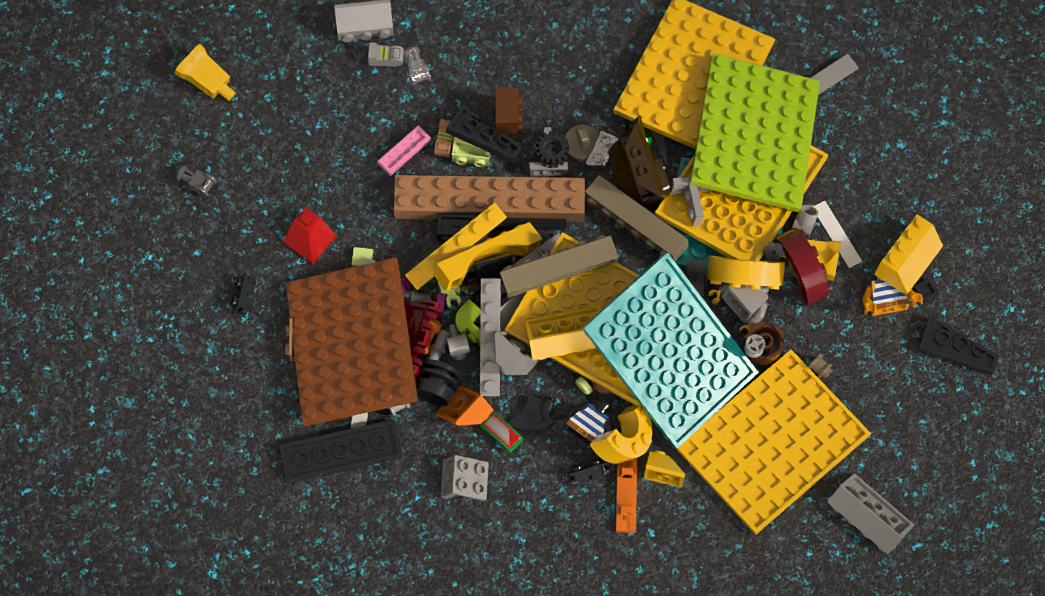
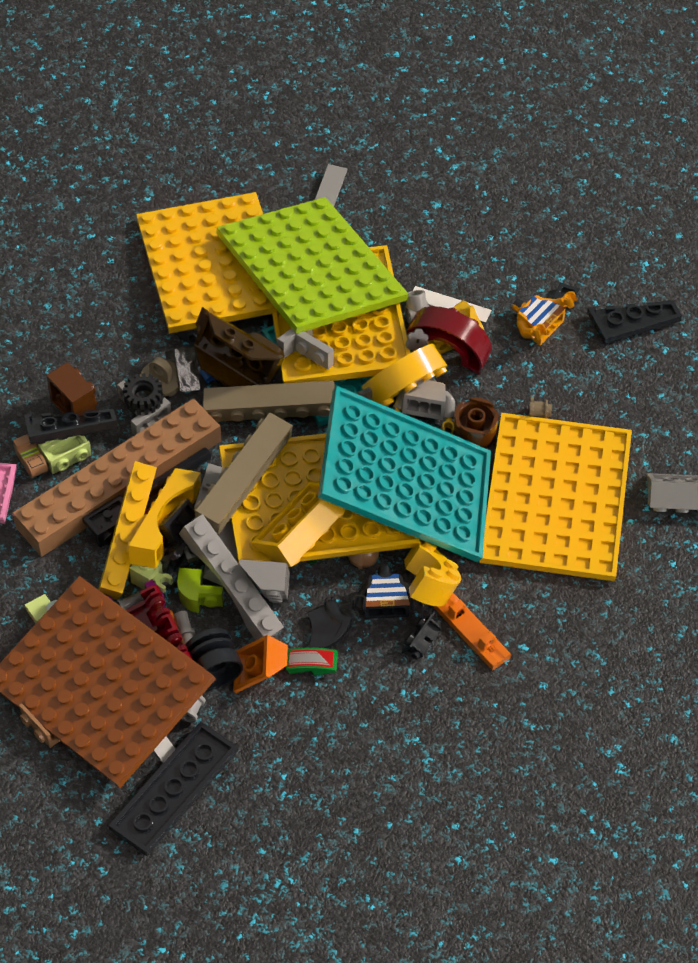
camera: 40 degrees left, 15 degrees down
(457, 344) = (203, 614): light grey piece -> none
(464, 478) = (311, 723): light grey bracket -> none
(584, 386) = (350, 568): yellowish green tile -> none
(663, 470) = (489, 583): yellow slope -> none
(756, 342) = (469, 419): light grey wheel -> none
(910, 255) = (529, 272): yellow slope -> none

